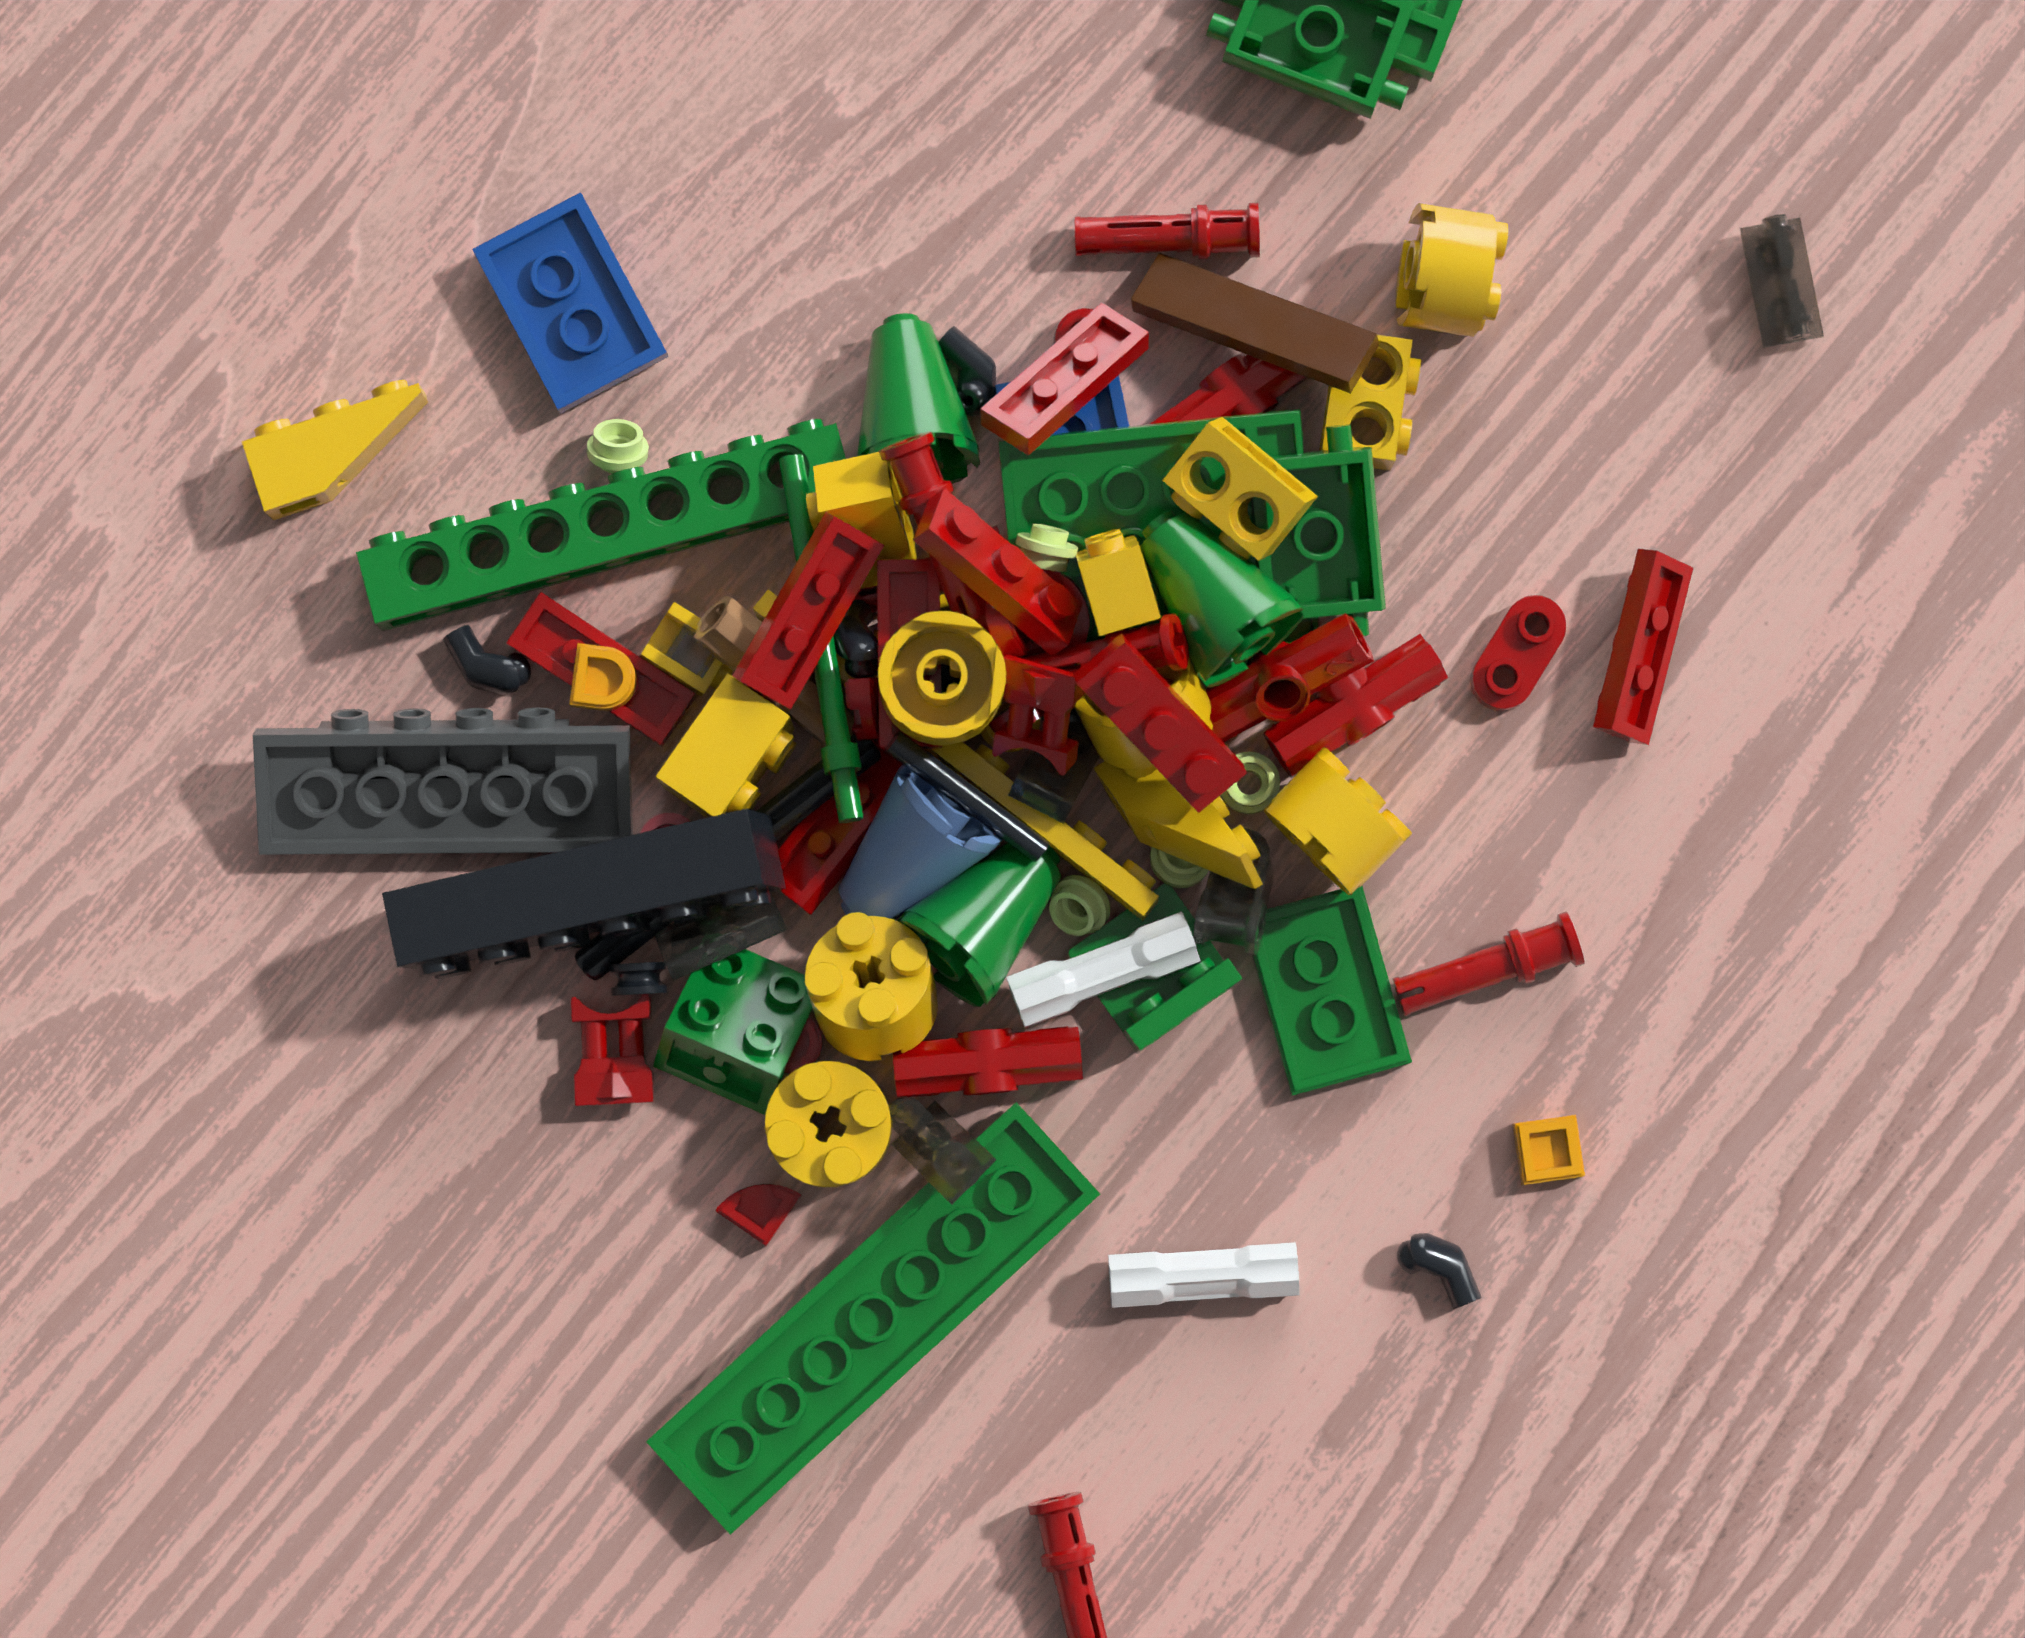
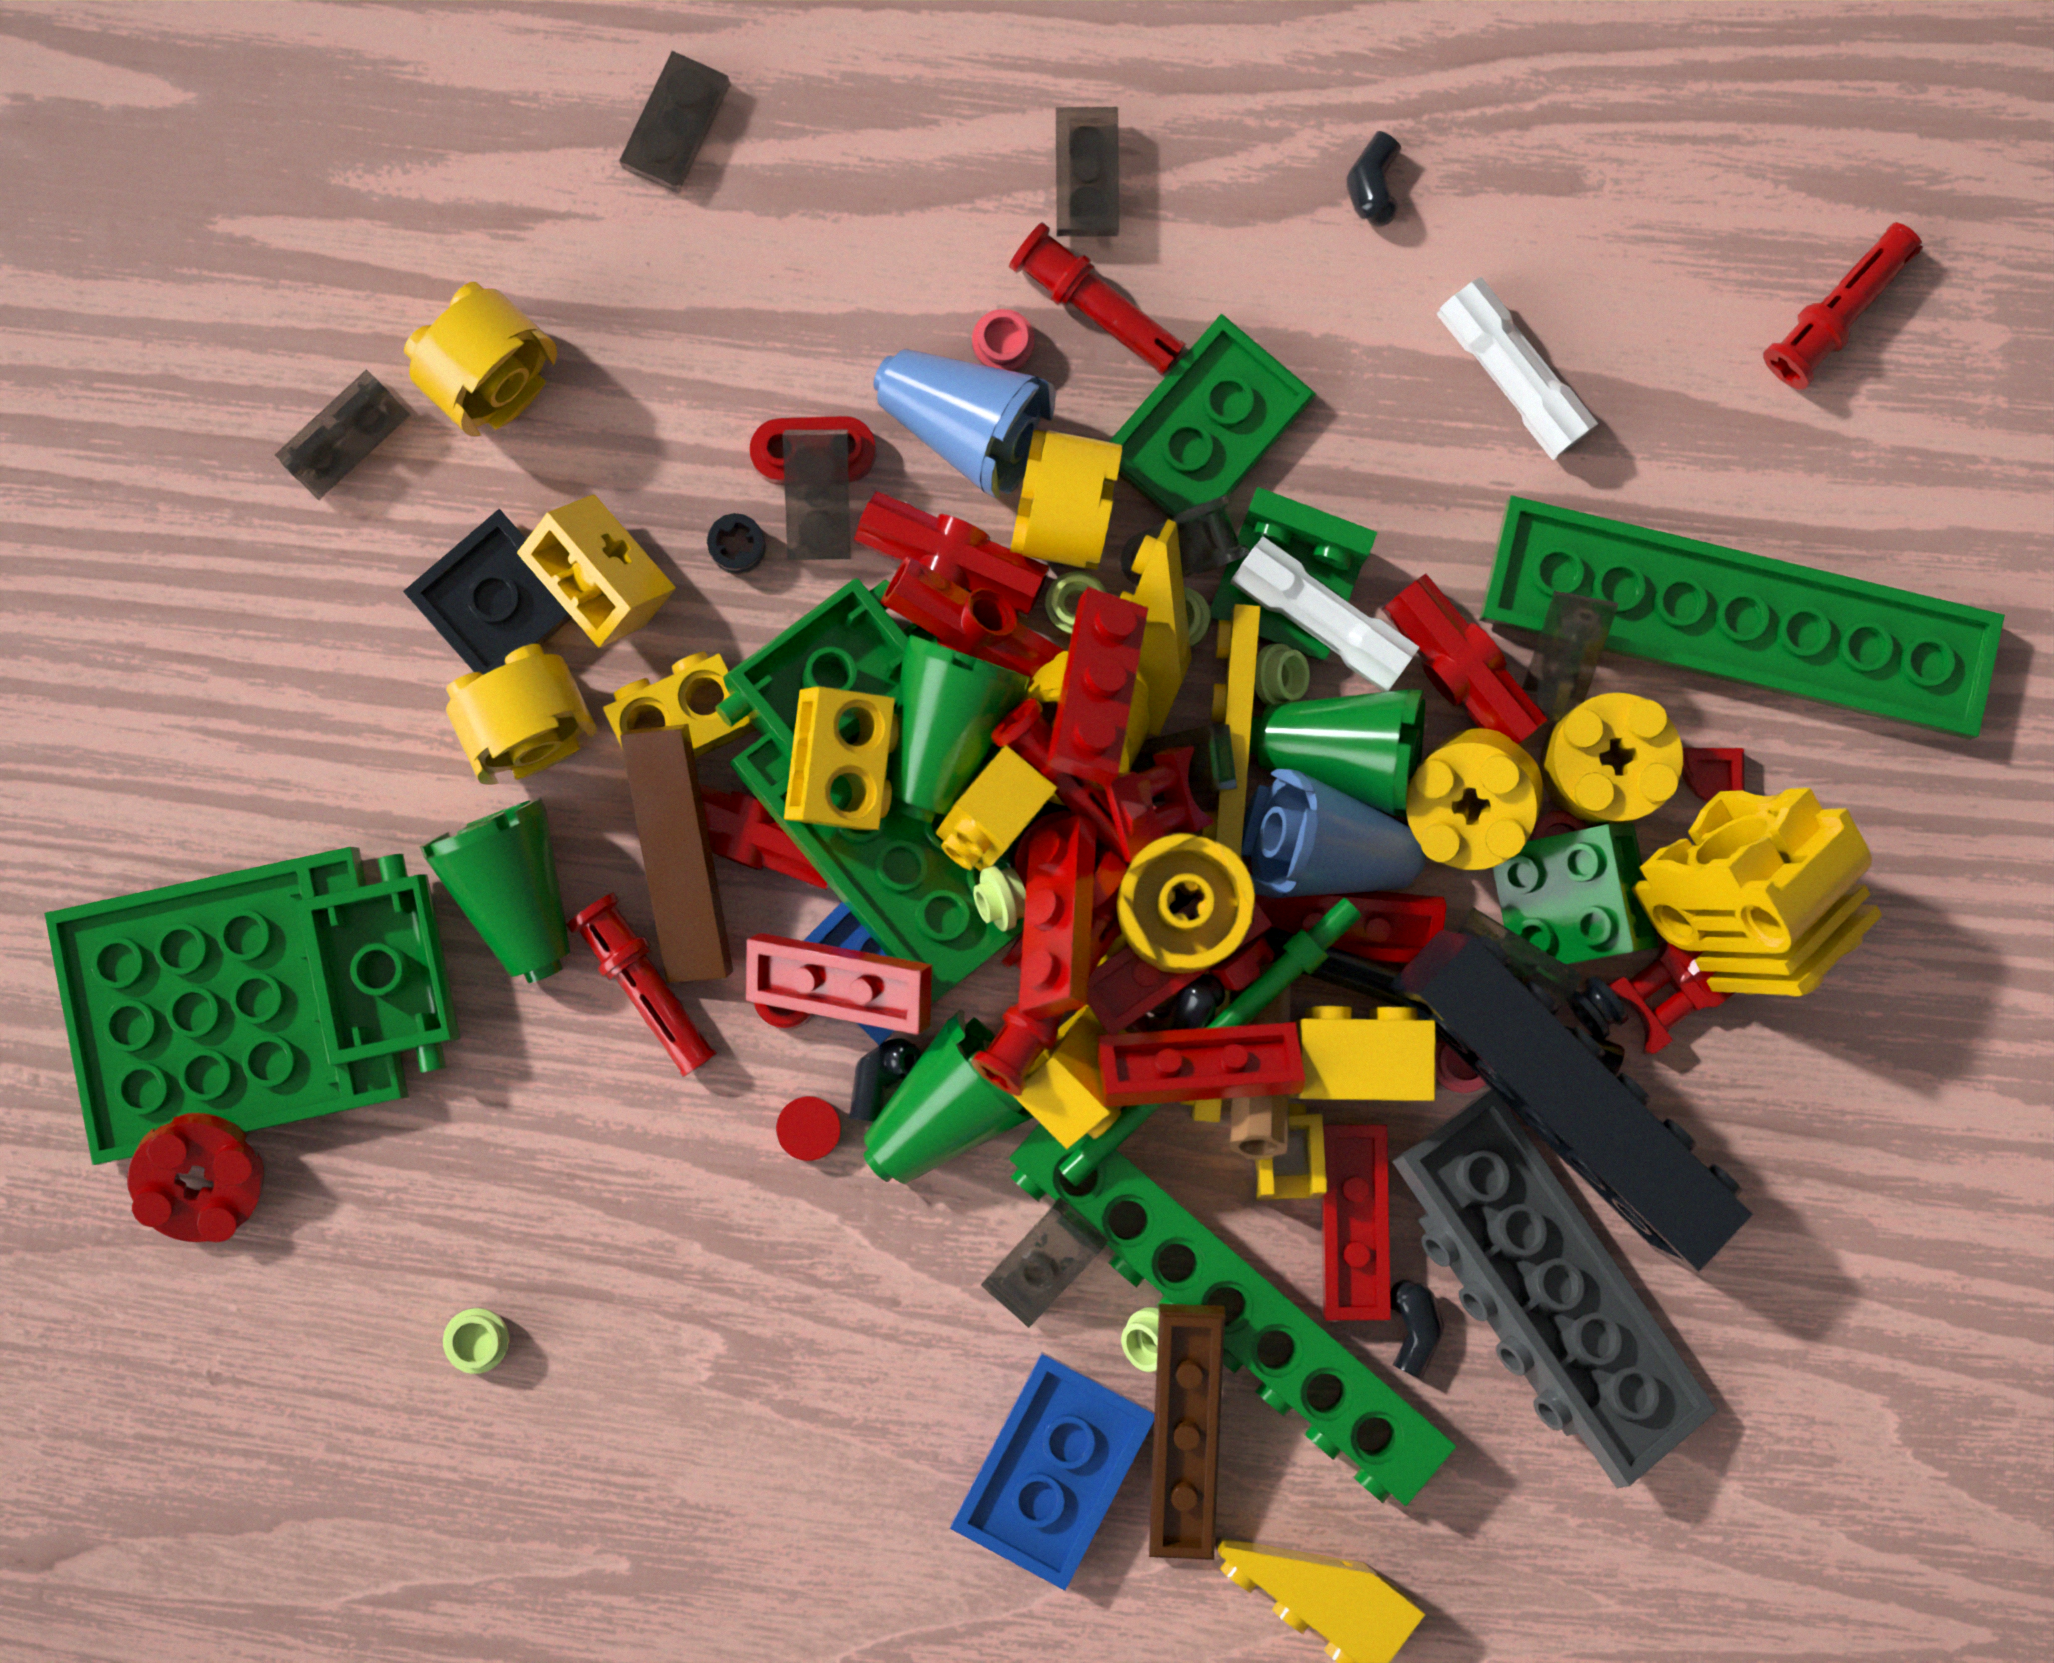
camera: 125 degrees left, 0 degrees up
(530, 423) = (1186, 1431): none -> reddish brown tile
(601, 678) = (1366, 1213): light orange tile -> none
(641, 1157) = (1762, 891): none -> yellow piece
(736, 400) = (1044, 1262): none -> clear smoke plate
(966, 796) = (1263, 820): black bar -> none
(967, 289) = (808, 1128): none -> red tile
(1320, 175) = (507, 886): none -> green cone
(1463, 535) = (728, 526): none -> black bush
(1463, 791) = (967, 413): none -> medium blue cone
(1476, 628) = (817, 494): none -> clear smoke plate
(1507, 868) = (1003, 339): none -> coral plate
(1529, 408) = (596, 570): none -> yellow brick
(1548, 1150) = (1216, 157): light orange tile -> none
(1563, 316) = (487, 597): none -> black plate
(1604, 1030) = (1087, 171): none -> clear smoke plate
(1643, 646) = (739, 347): red plate -> none
(1765, 426) = (480, 359): none -> yellow brick
(1871, 721) = (675, 121): none -> clear smoke plate

